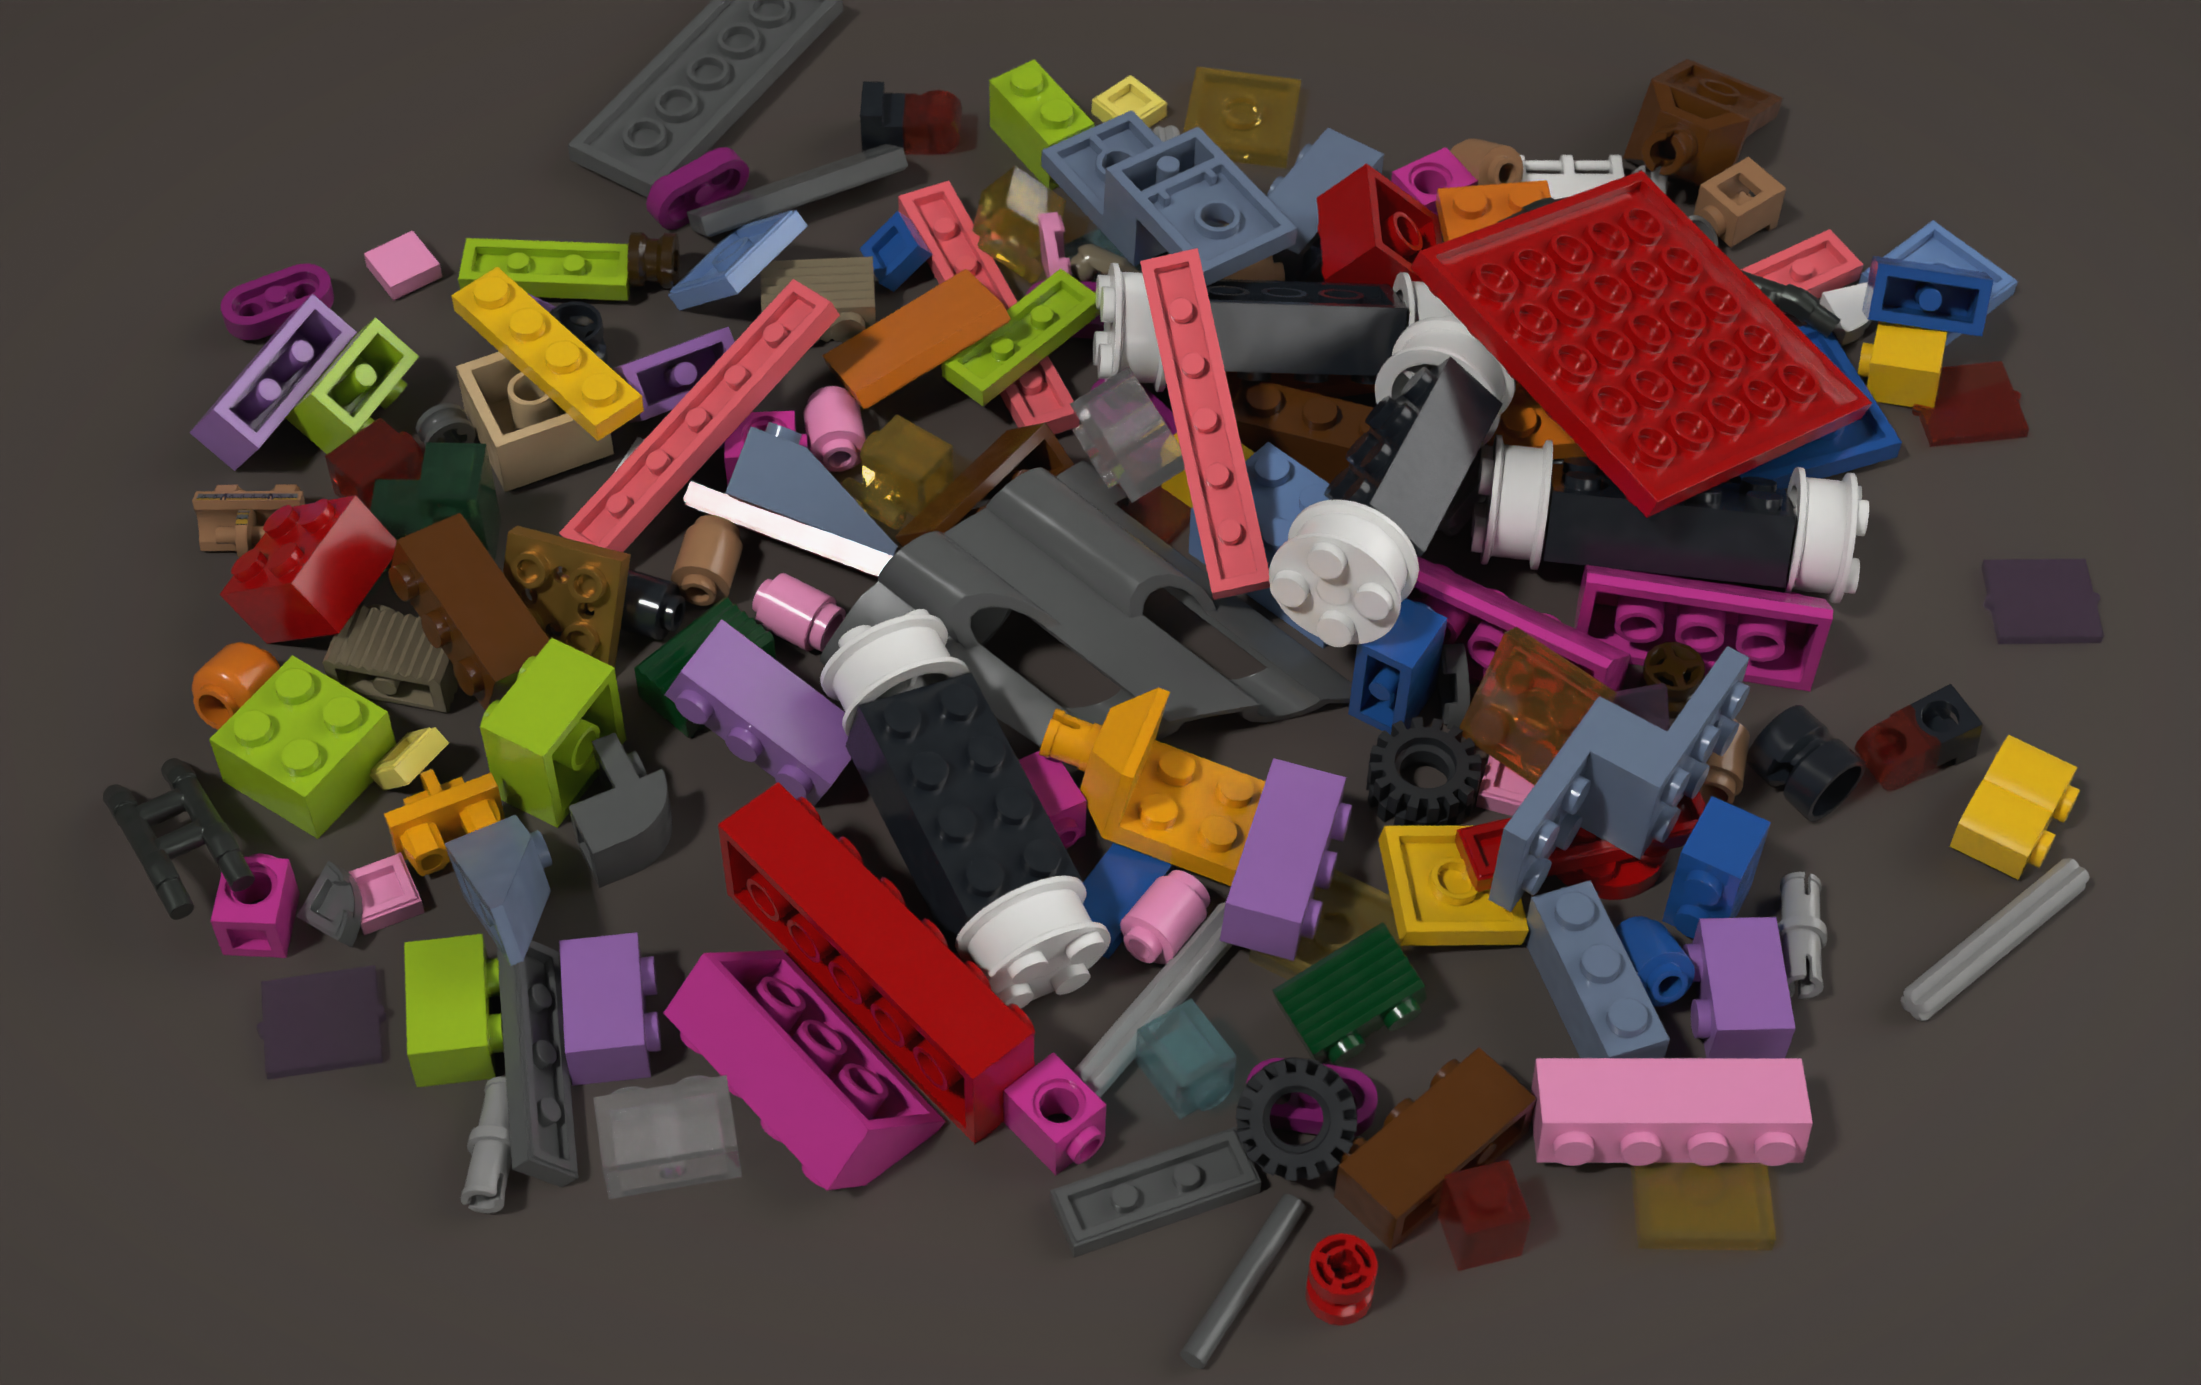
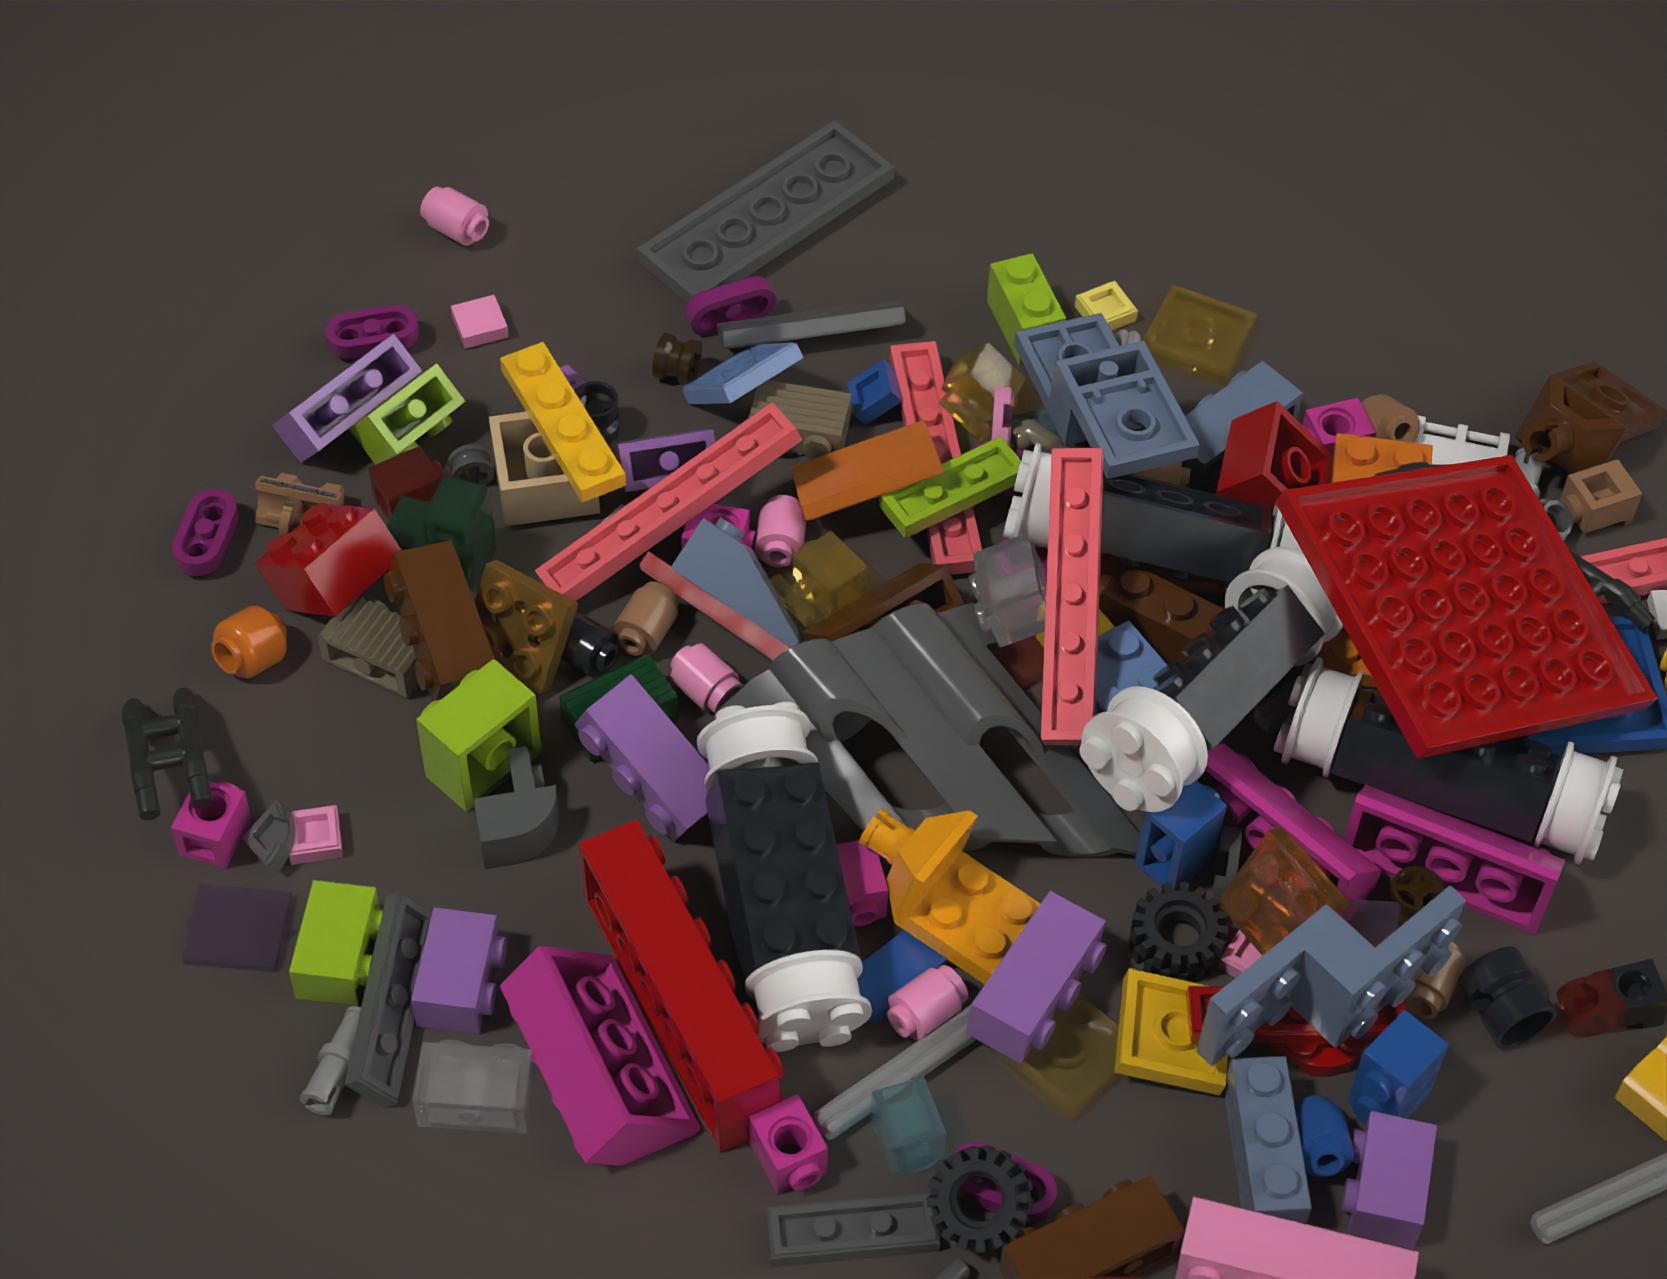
camera: 15 degrees right, 0 degrees up
(142, 586) = (201, 535): none -> magenta plate
(303, 746) = (286, 701): lime brick -> none
(338, 149) = (455, 215): none -> bright pink brick
(408, 758) = (363, 729): light yellow tile -> none
(440, 816) = (378, 783): light orange hips -> none
(504, 881) = (406, 849): sand blue slope -> none
(551, 267) = (592, 348): lime plate -> none
(910, 121) = (918, 283): leg -> none
(1351, 996) = (1057, 1106): dark green brick -> none
(1802, 934) = (1459, 1144): light grey pin -> none

